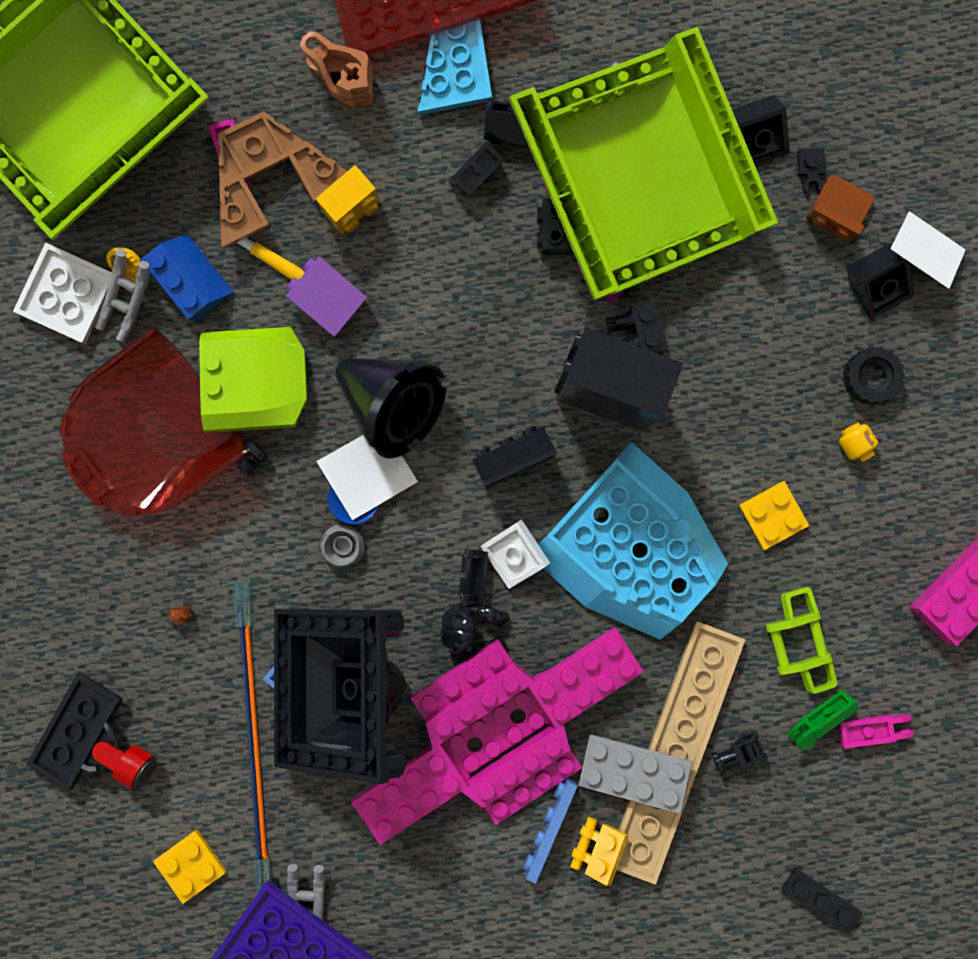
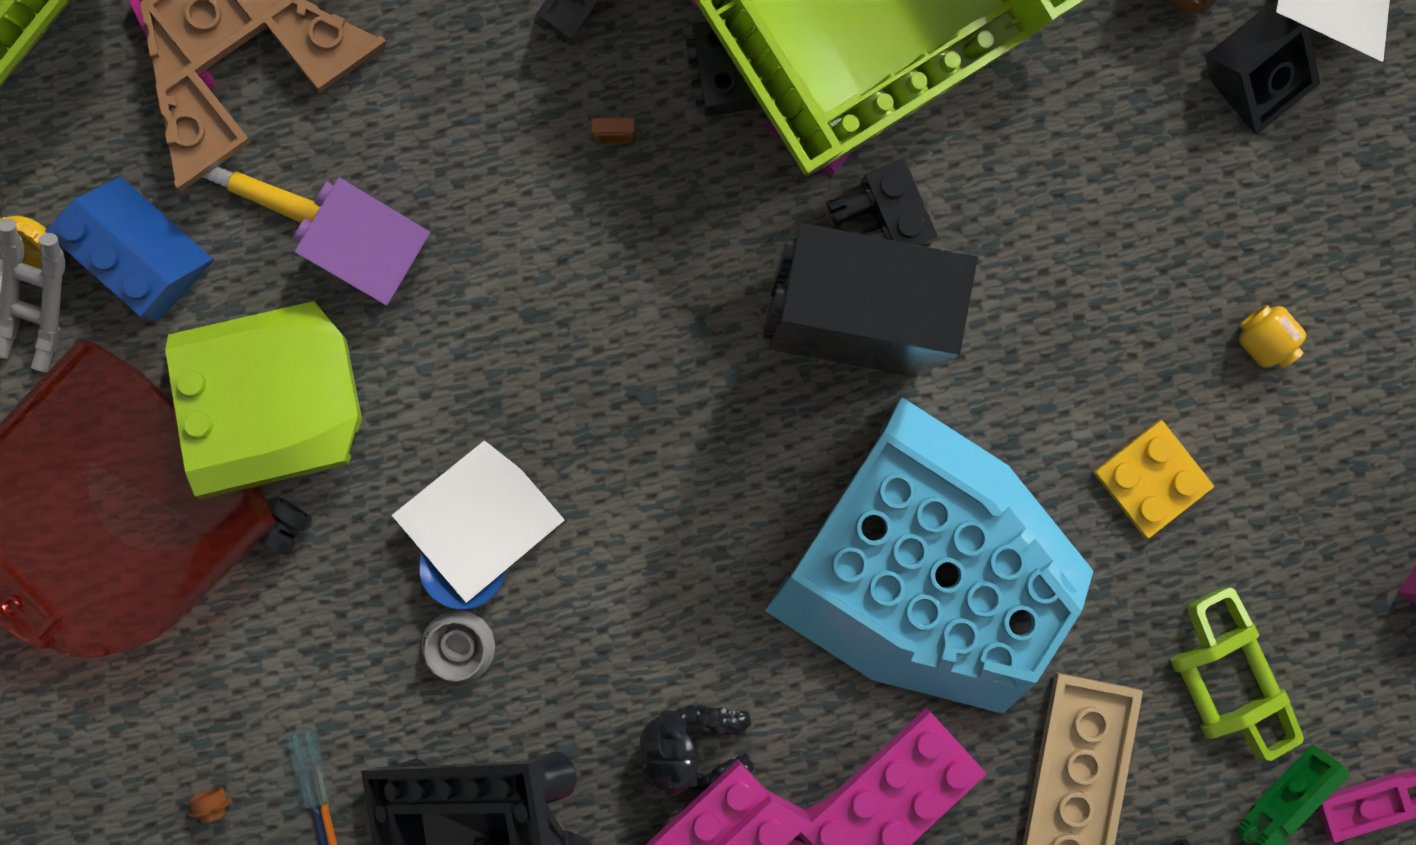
camera: 15 degrees left, 0 degrees up
(349, 200) = (374, 77): yellow brick -> none
(392, 400) = (499, 396): black cone -> none
(473, 586) = (681, 645): black hinge -> none
(485, 254) = (614, 130): none -> dark orange tile
(514, 456) = (714, 453): black slope -> none
(515, 554) = (743, 614): white plate -> none
(883, 358) = (1301, 201): black tyre -> none

